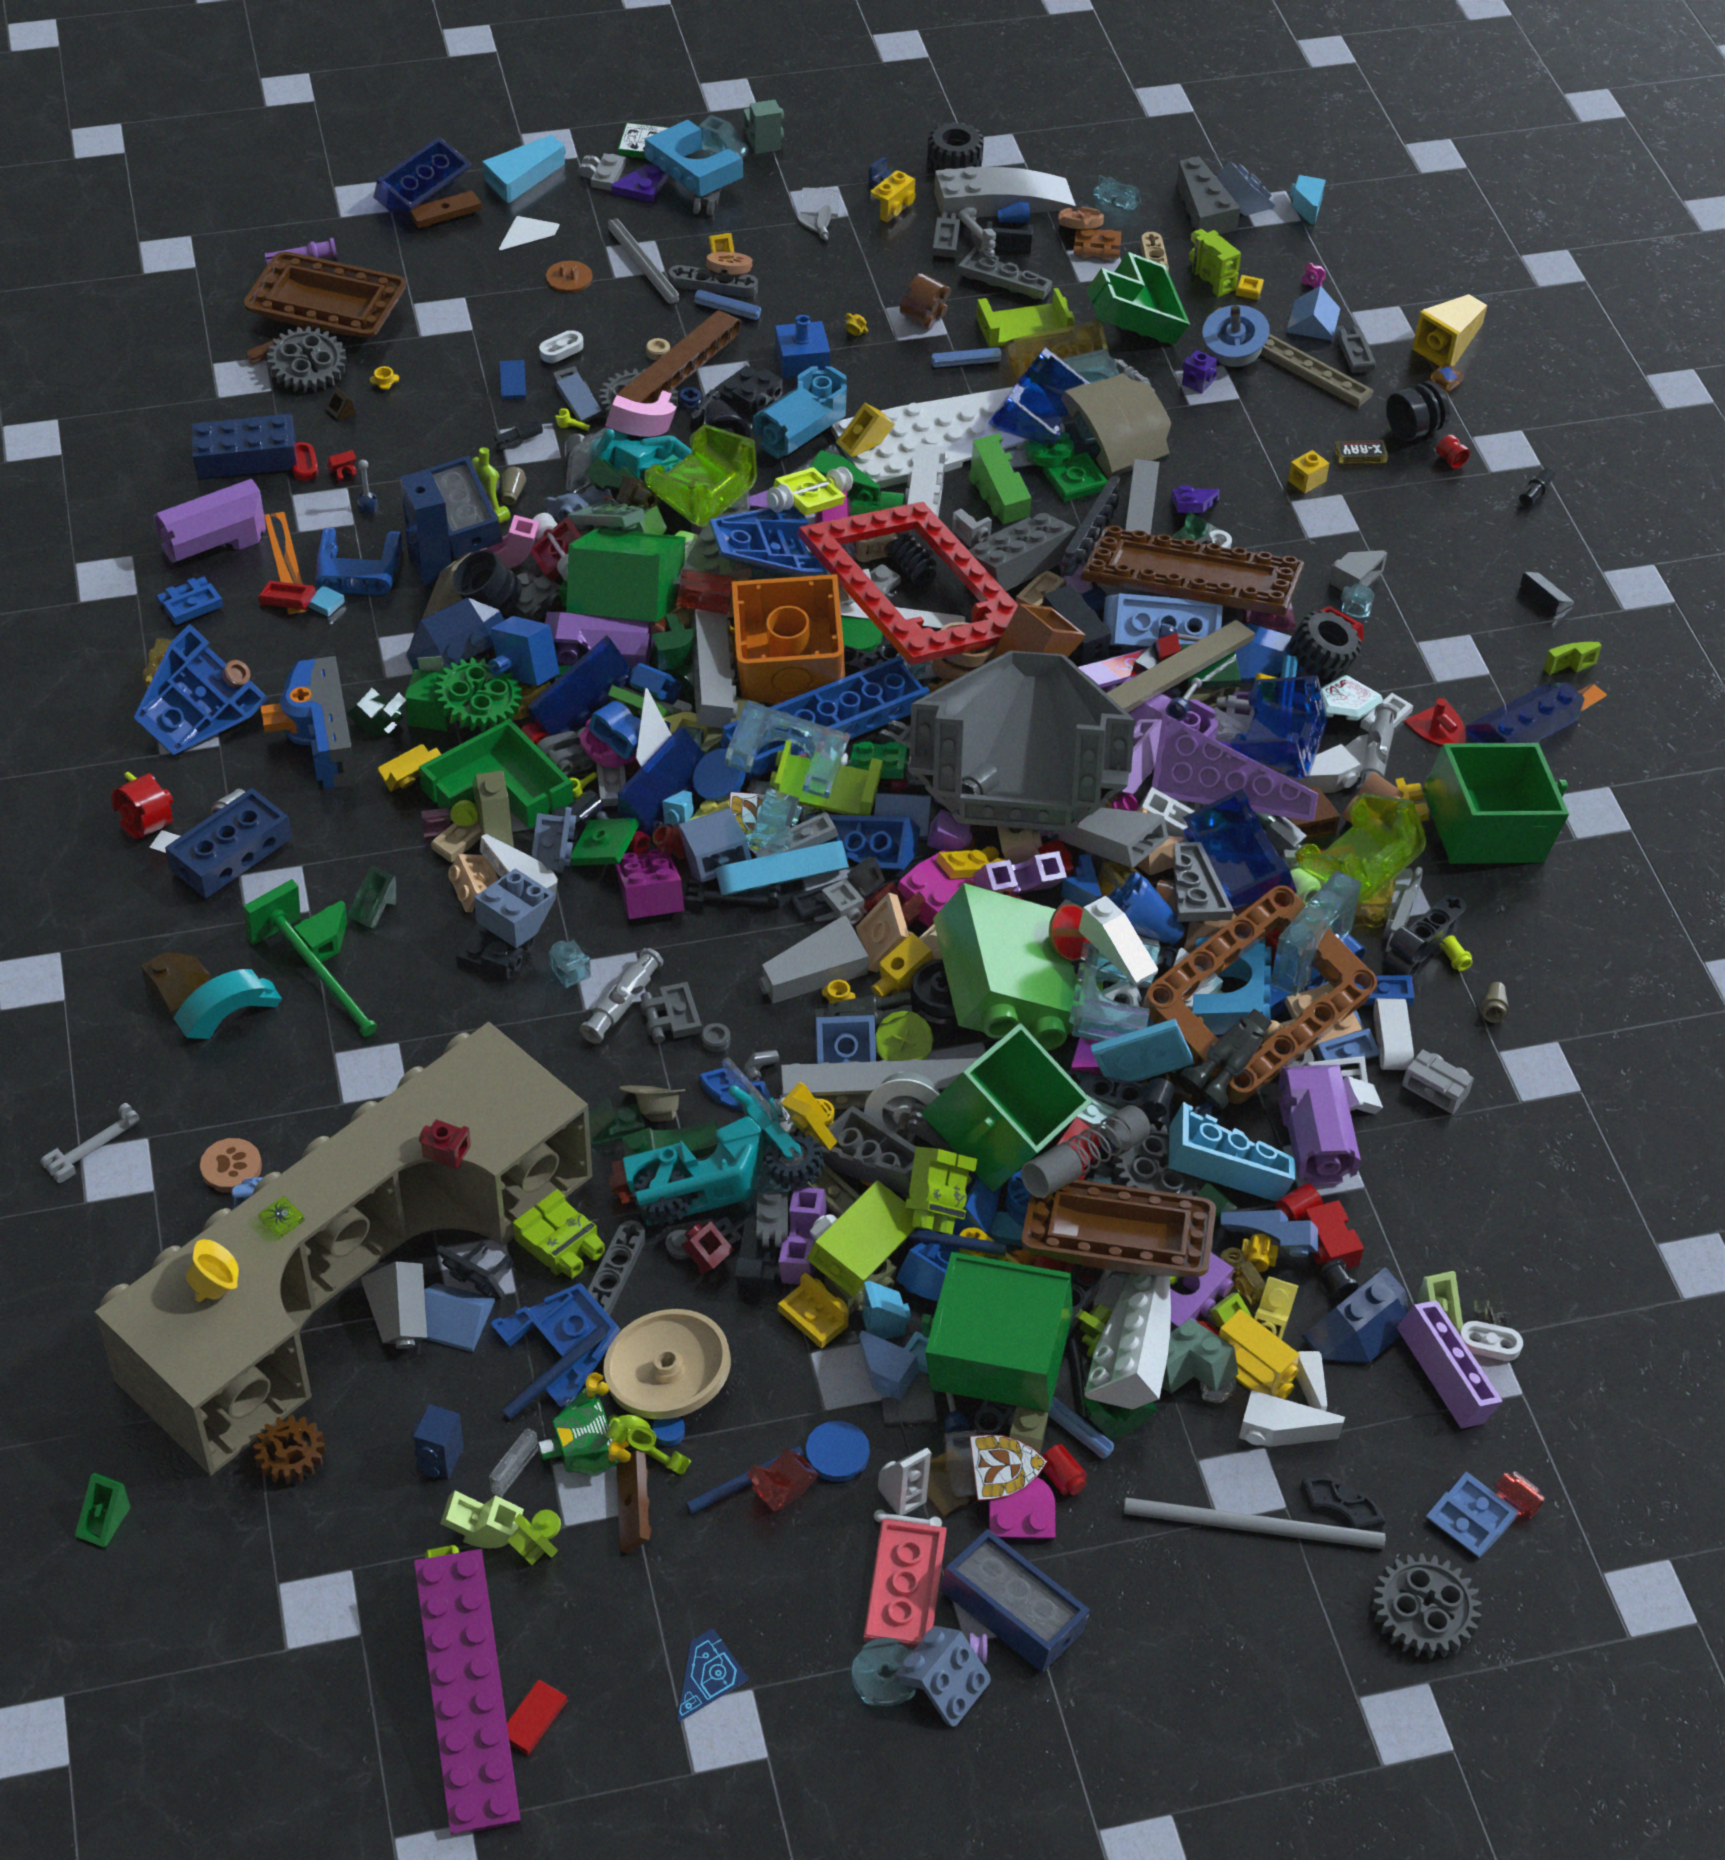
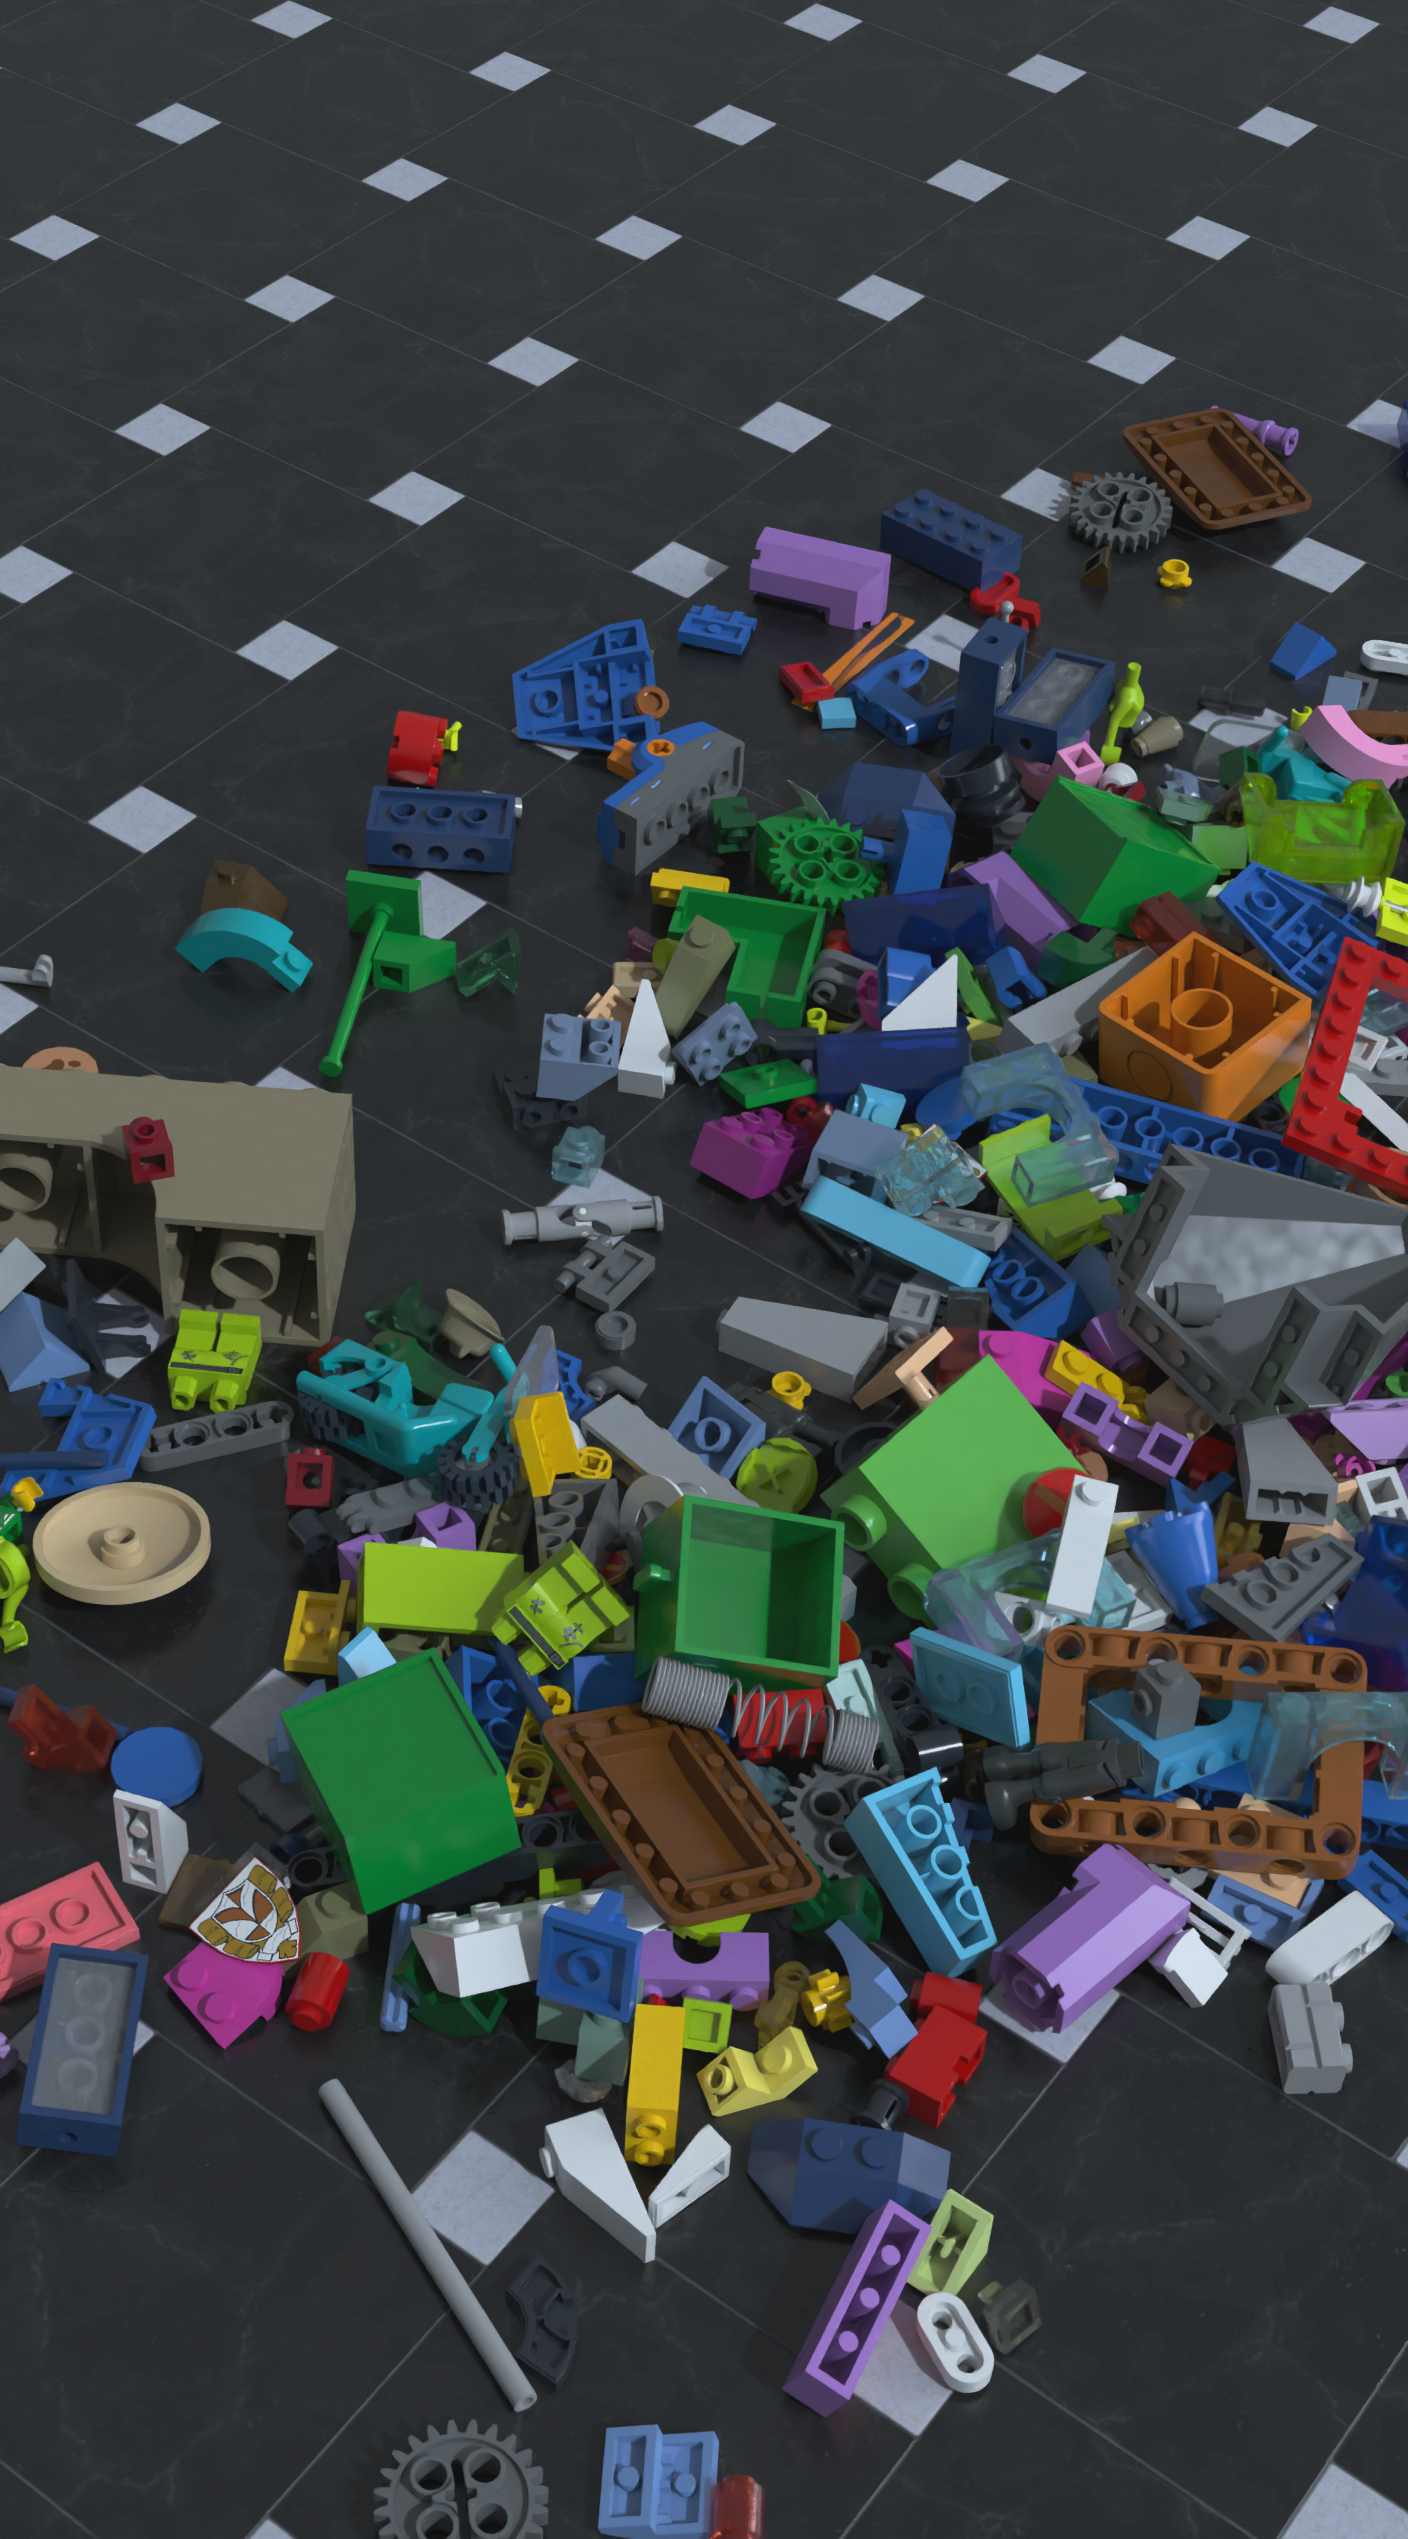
camera: 50 degrees right, 5 degrees down
(669, 1431) = (49, 1606): blue tile -> none
(881, 1514) = (139, 1915): white hinge -> none
(900, 966) = (868, 1403): yellow torso -> none
(1191, 1323) = (591, 1958): none -> blue bracket
(1232, 974) = (1165, 1699): none -> dark grey brick

